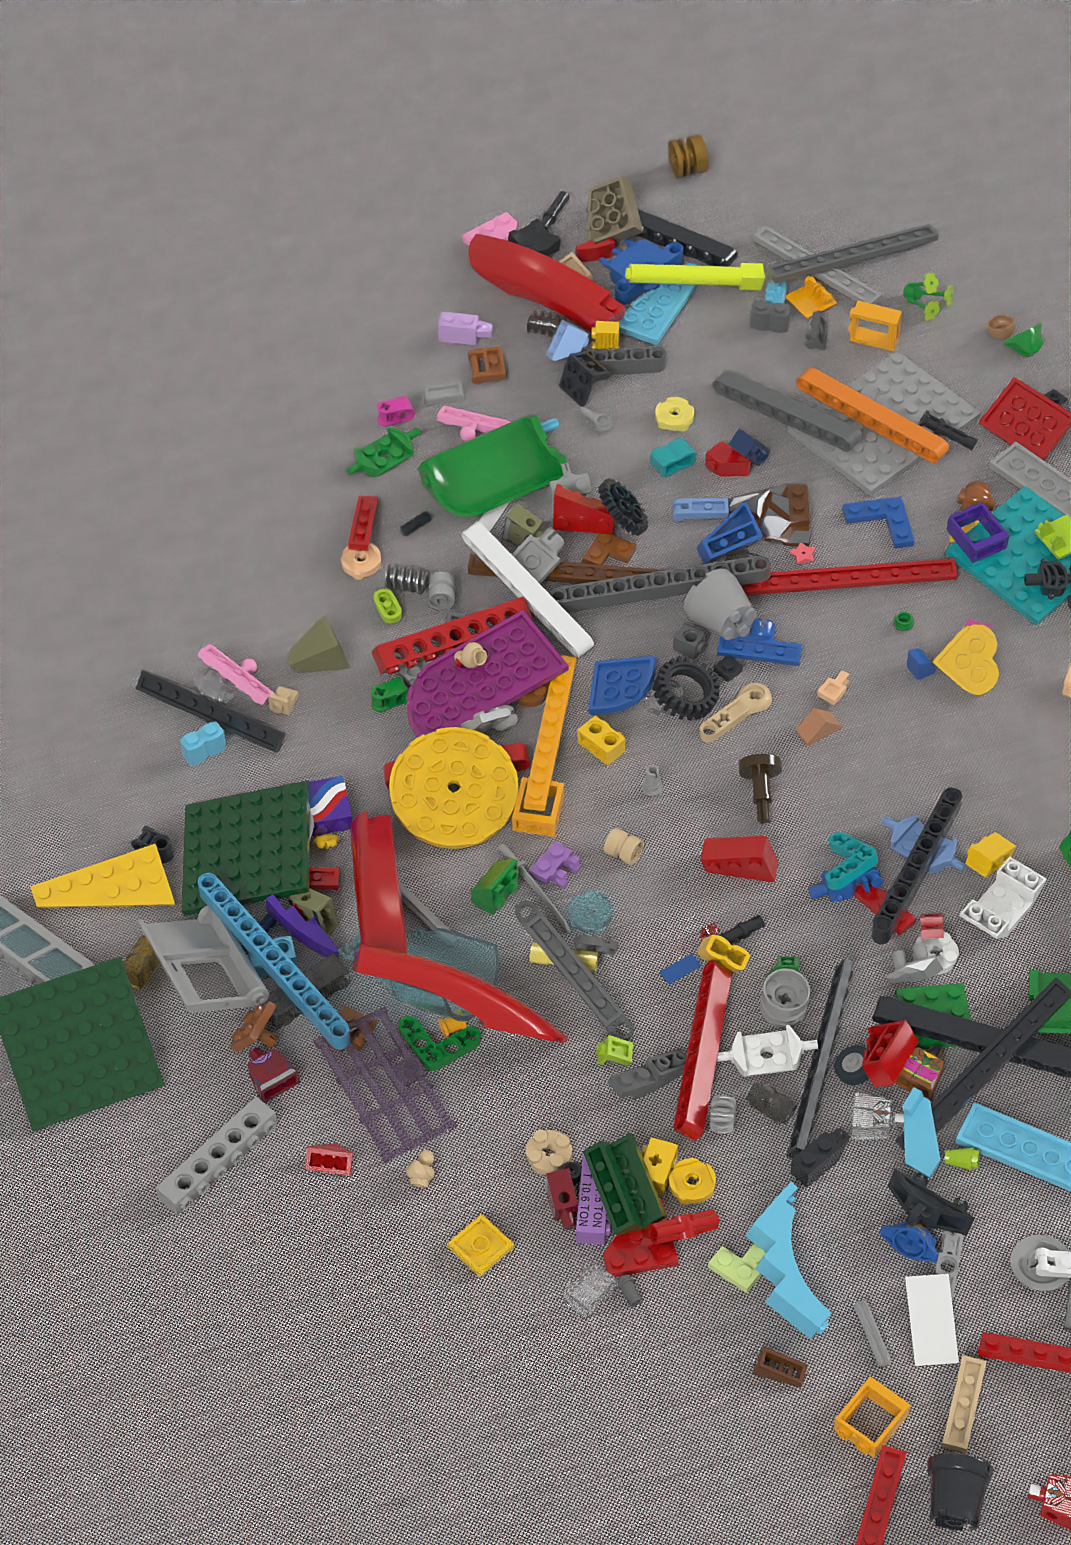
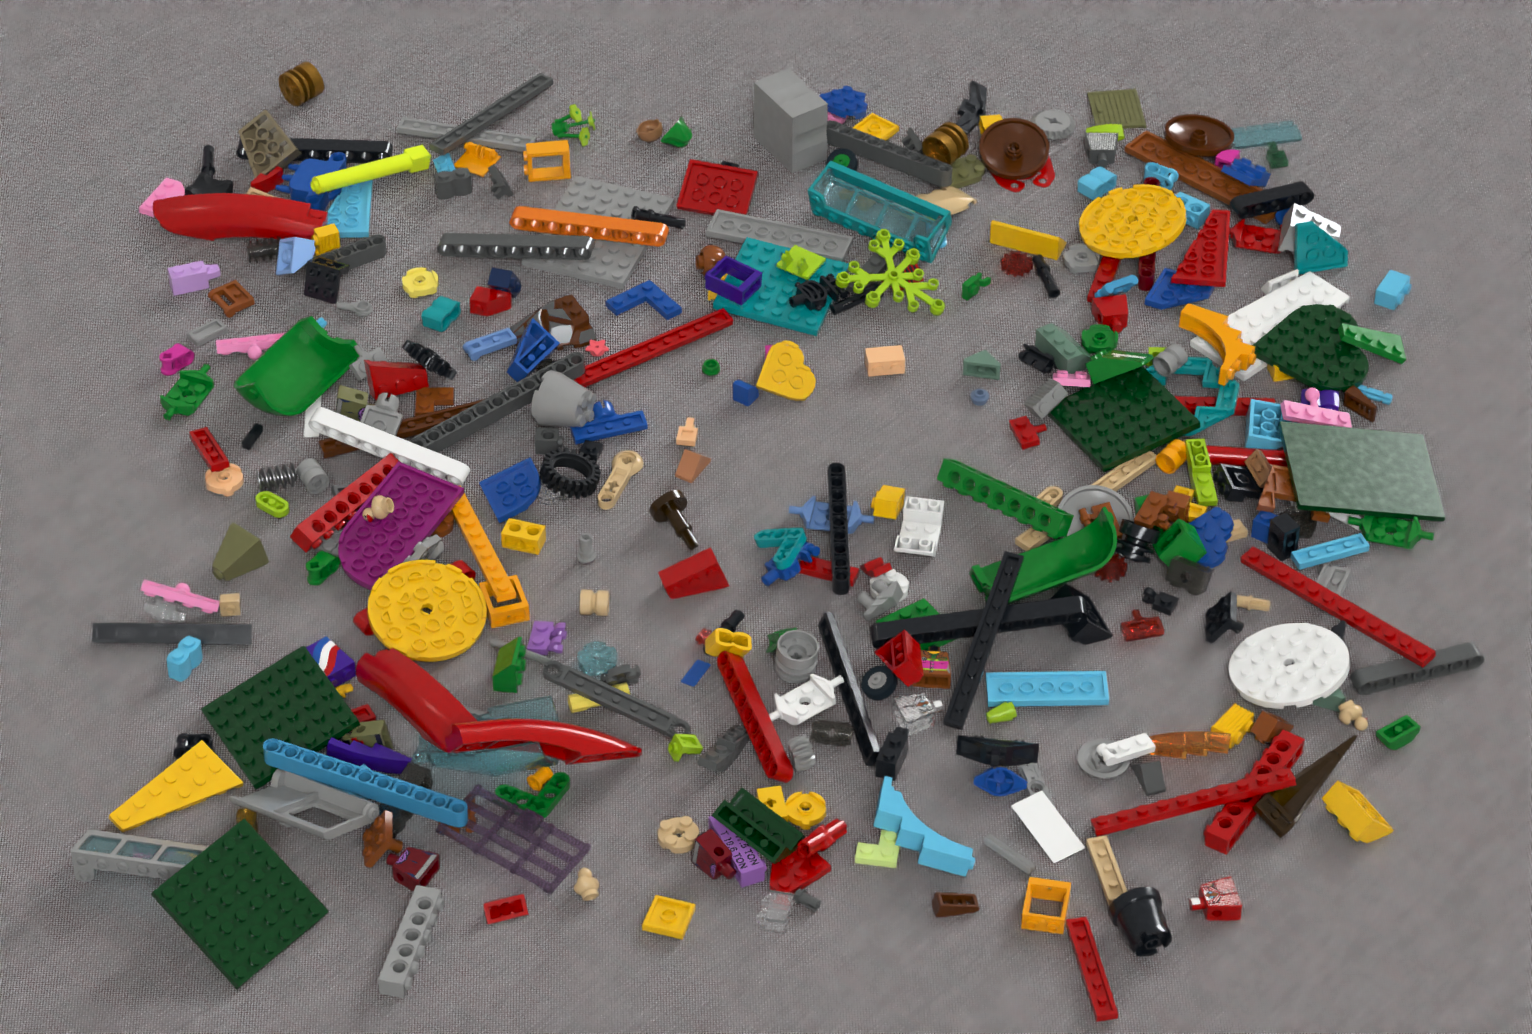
camera: 30 degrees left, 10 degrees down
(920, 1134) = (961, 707): medium azure piece -> none

